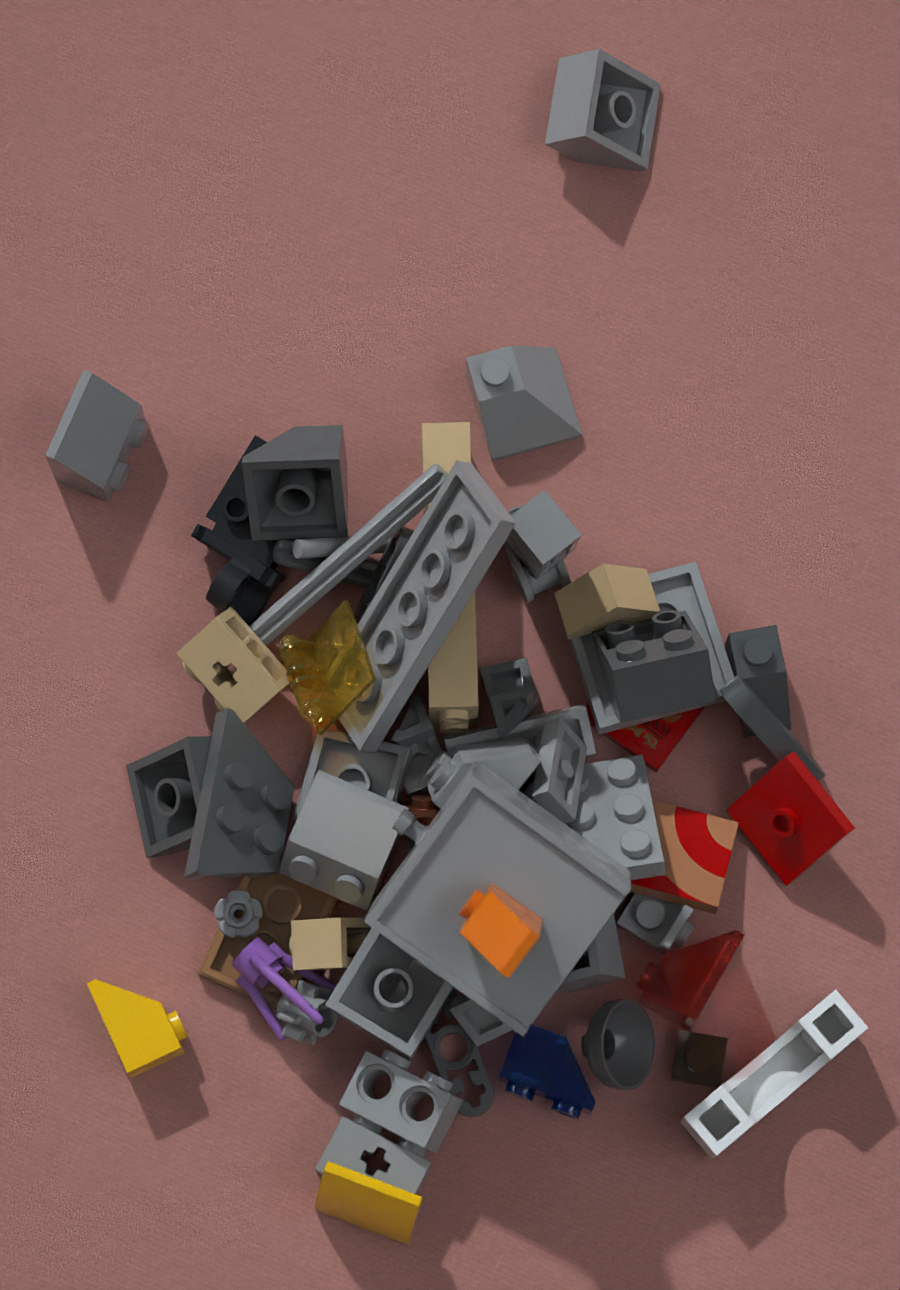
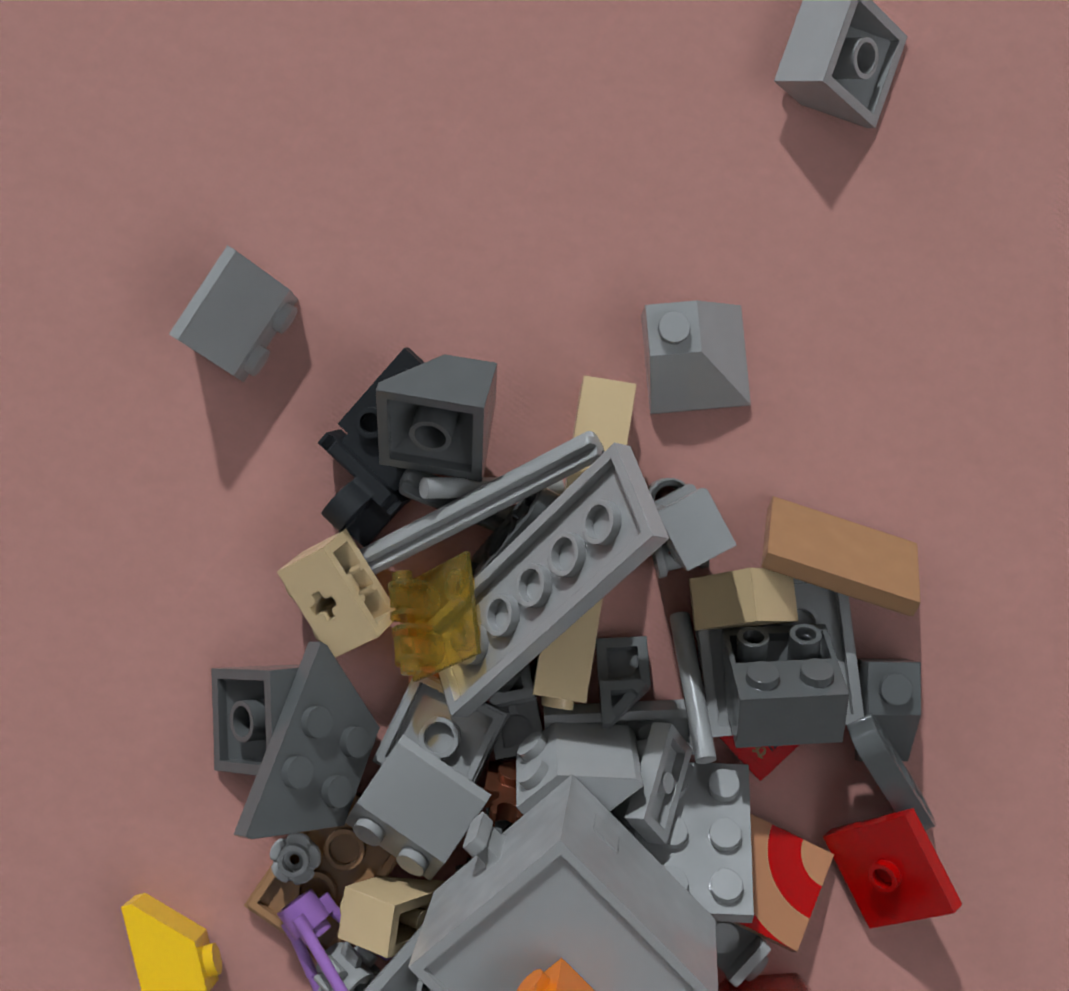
camera: 10 degrees right, 10 degrees up
(575, 689) = (692, 688): none -> light grey bar
(687, 547) = (841, 556): none -> medium nougat tile

